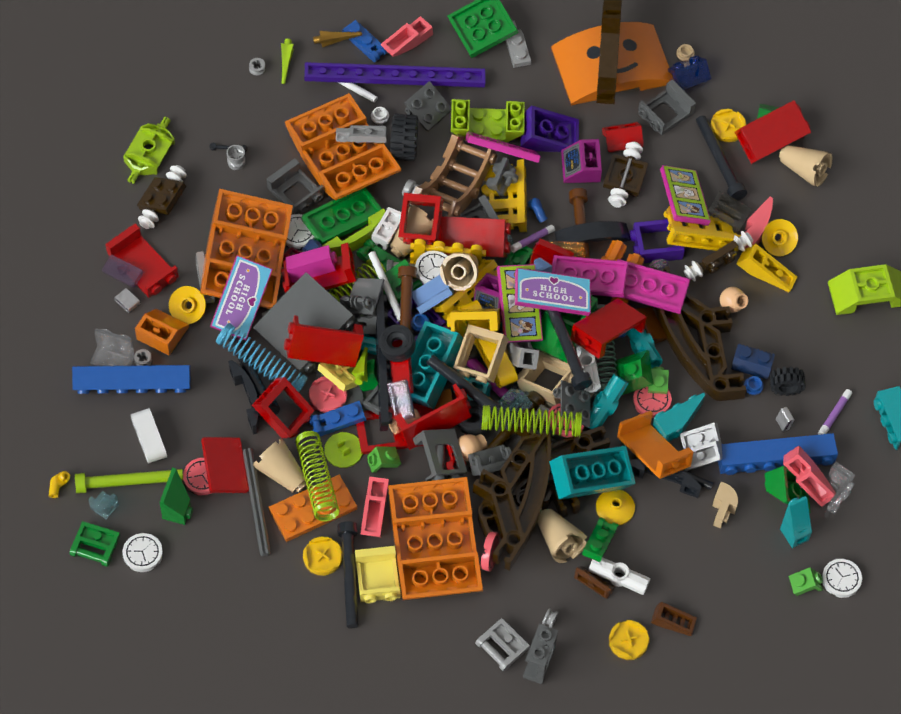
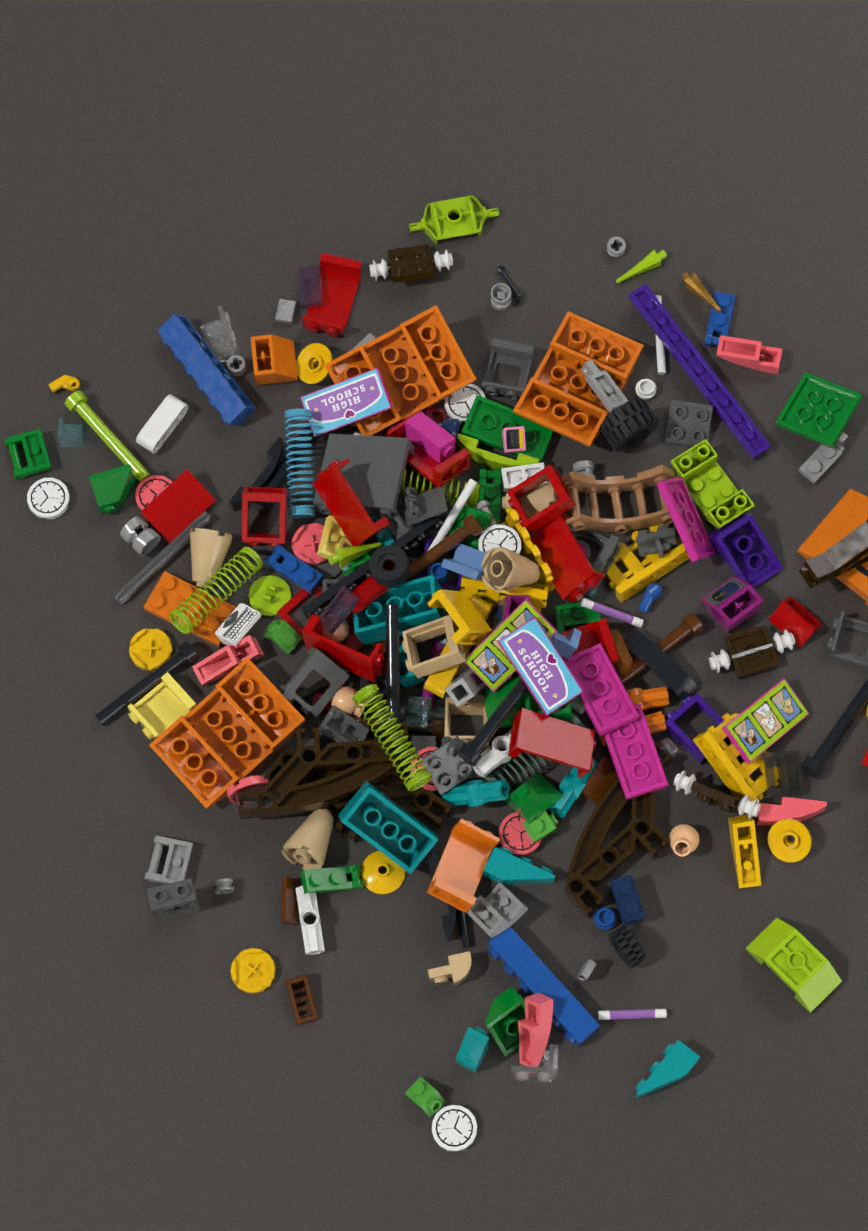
camera: 60 degrees right, 10 degrees up
(228, 504) = (138, 534): none -> light grey wheel
(353, 481) = (237, 624): none -> slope
(355, 214) = (514, 439): none -> slope

